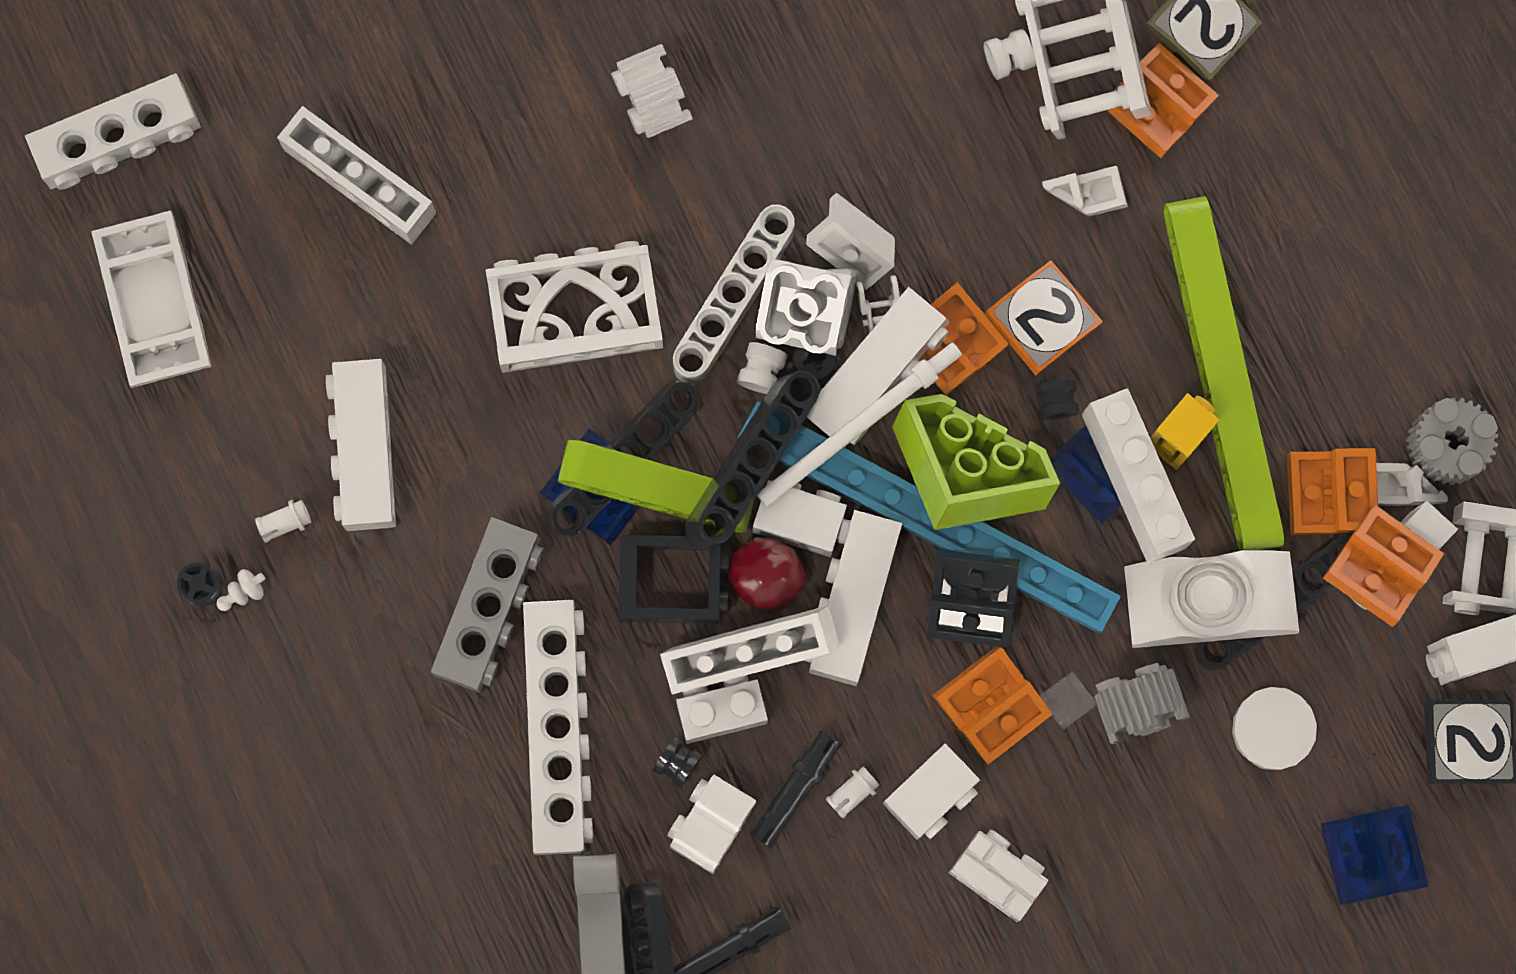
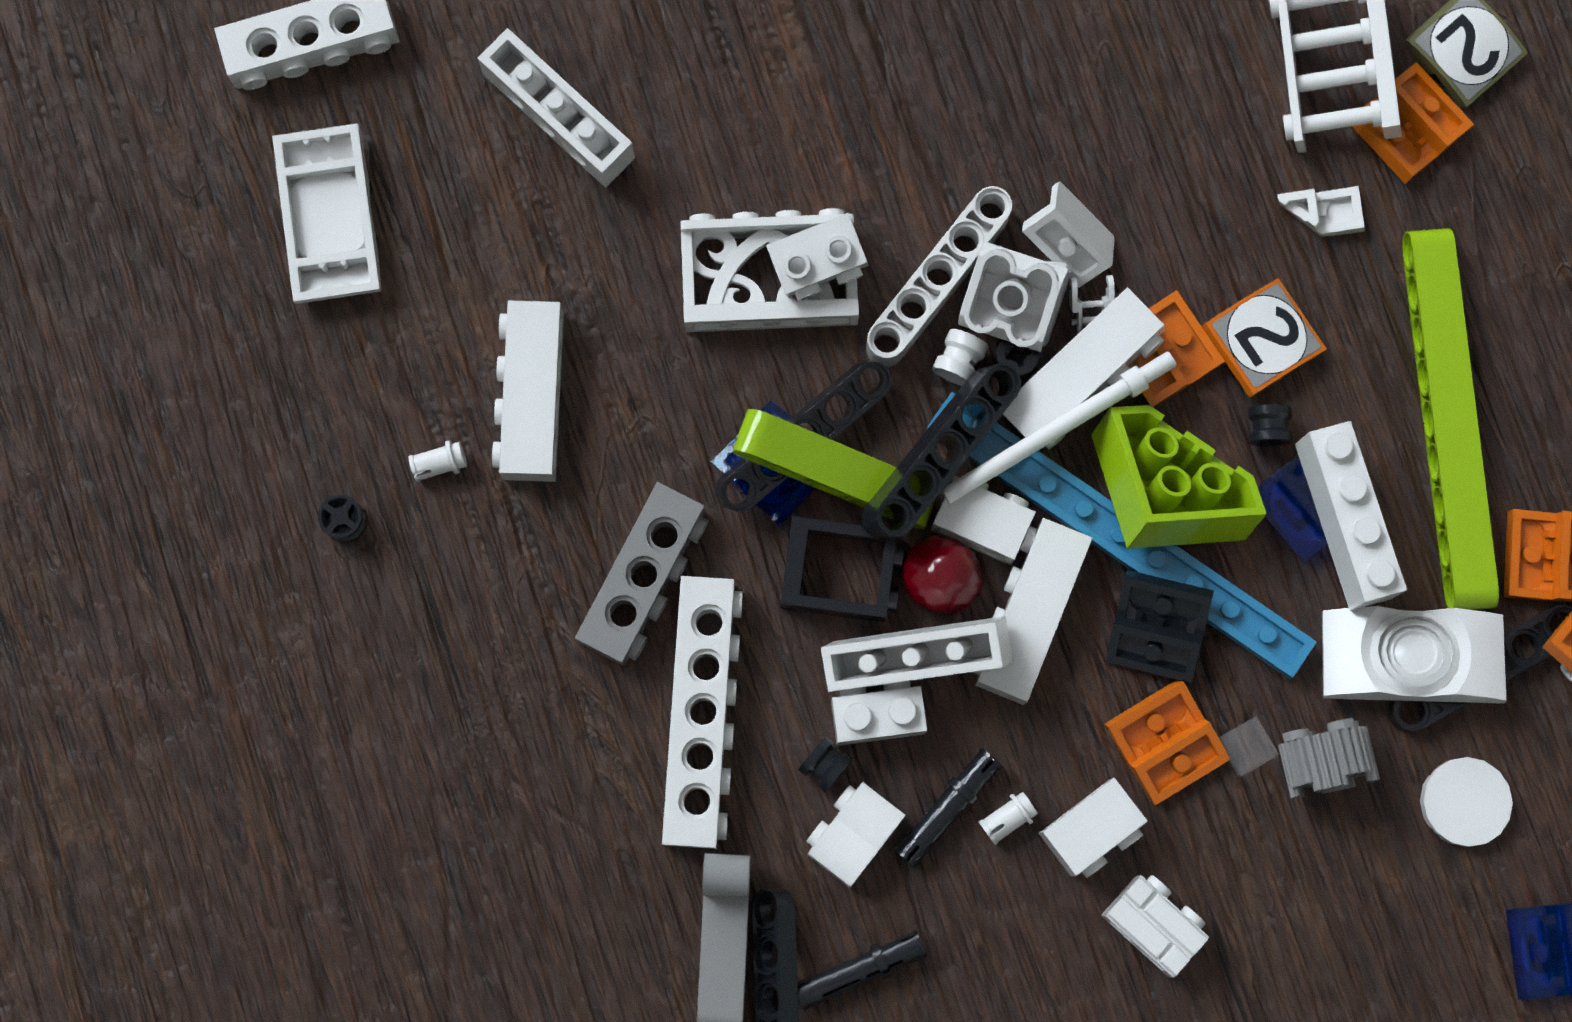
camera: 10 degrees right, 0 degrees up
(239, 593) = (393, 525): white hair -> none
(617, 289) = (818, 256): none -> white brick
(652, 92) = (876, 54): white brick -> none
(1009, 54) = (1257, 56): white wheel -> none
(1184, 430) = (1405, 472): yellow brick -> none

